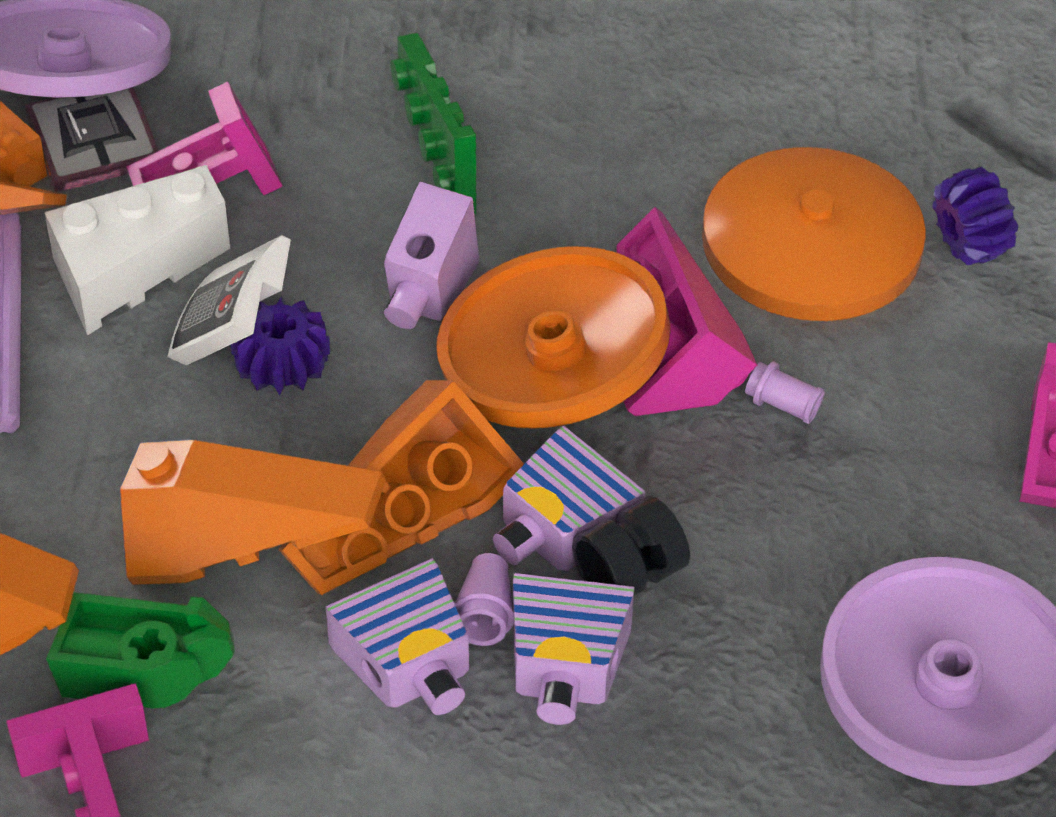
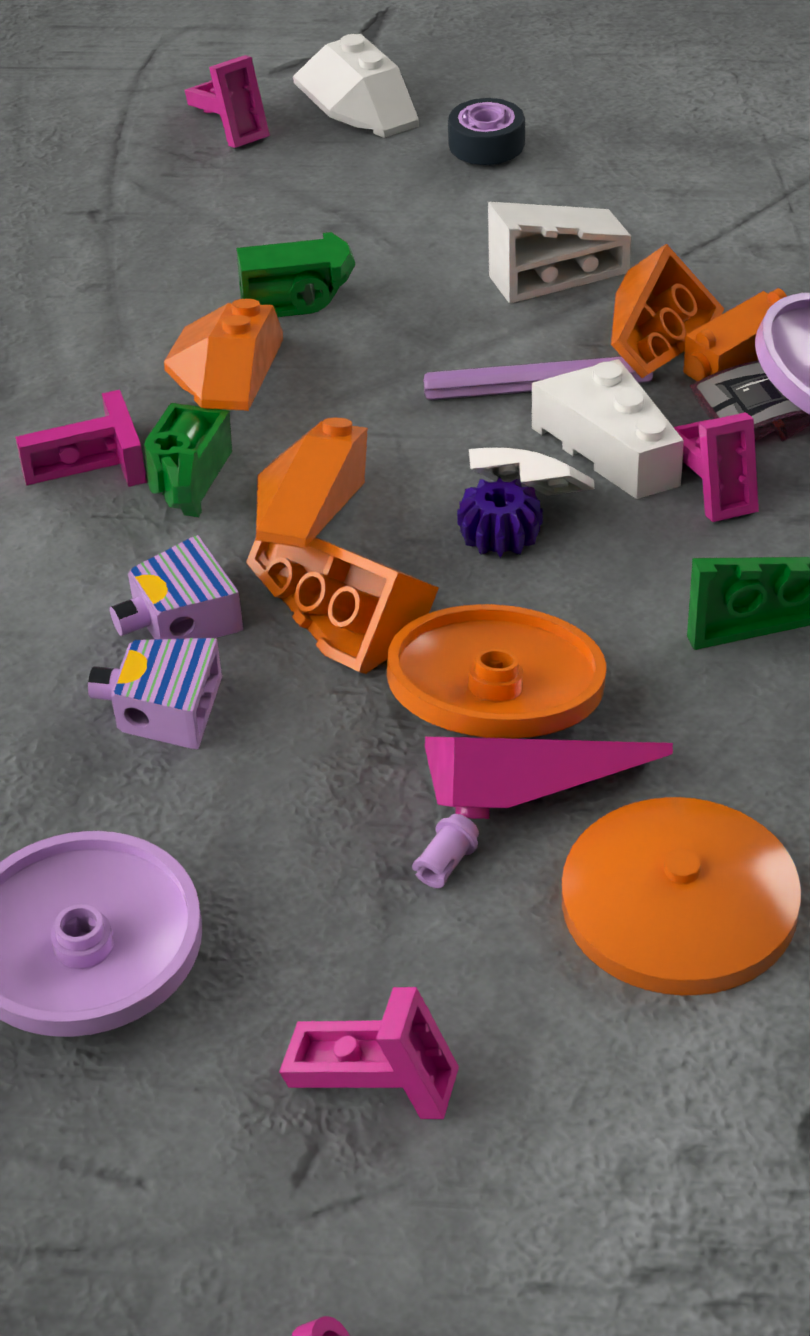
camera: 95 degrees right, 5 degrees down
(430, 256) = (595, 589): lavender torso -> none
(486, 600) = (234, 645): lavender cone -> none
(558, 497) = (313, 690): torso -> none
(636, 548) = (247, 724): black wheel -> none
(975, 215) = (680, 1006): dark purple gear -> none

